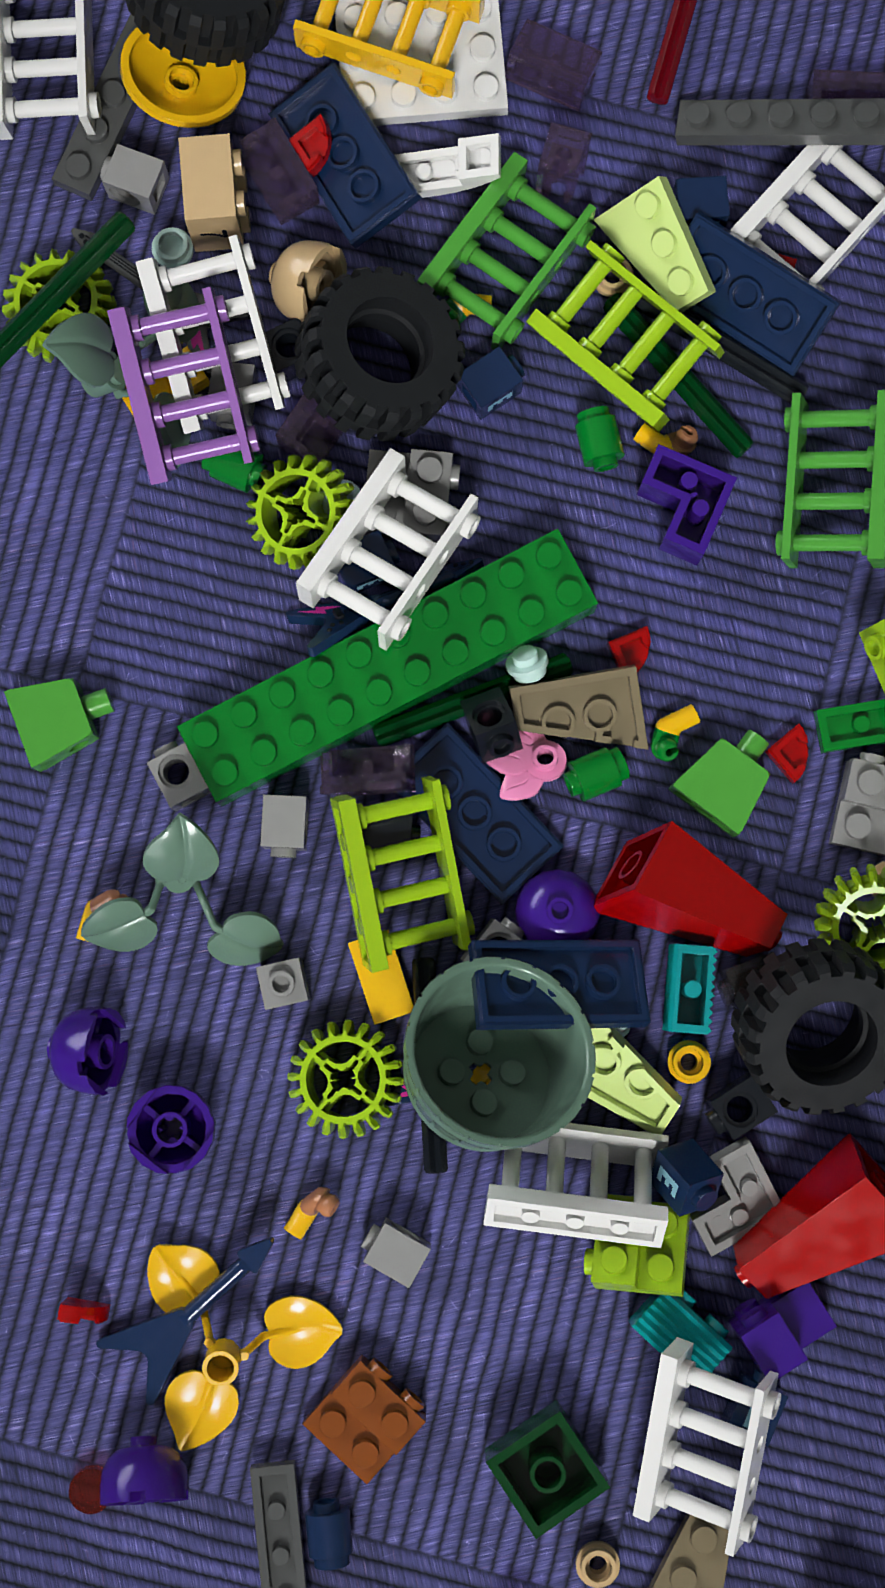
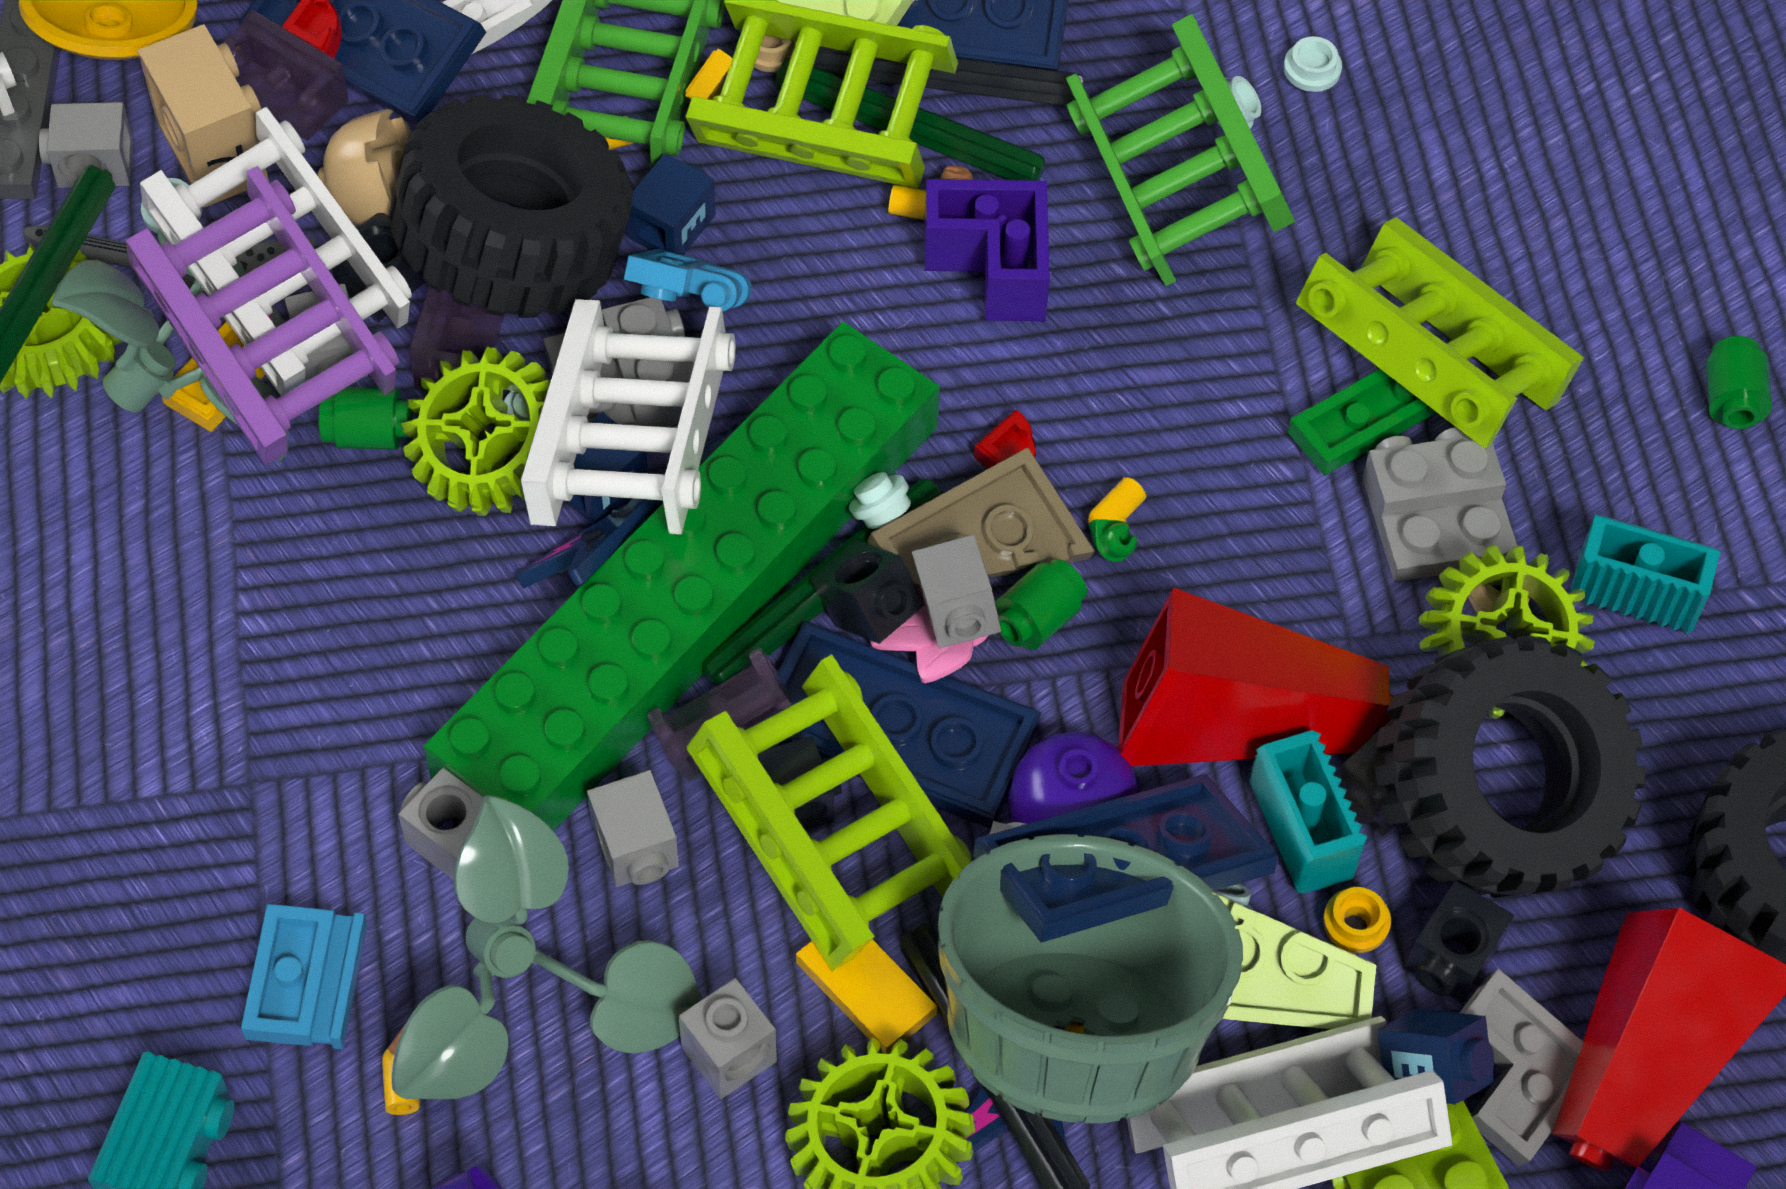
camera: 25 degrees left, 25 degrees down
(56, 719) = (238, 820): bright green torso -> none
(59, 836) = (304, 976): none -> dark azure plate
(475, 444) = (671, 275): none -> dark azure plate
(541, 757) = (956, 591): none -> light grey brick
(556, 292) = (710, 77): none -> yellow tile
(599, 438) = (844, 220): green brick -> none
(725, 782) = (1218, 547): bright green torso -> none
(791, 753) = (1284, 491): red tile -> none

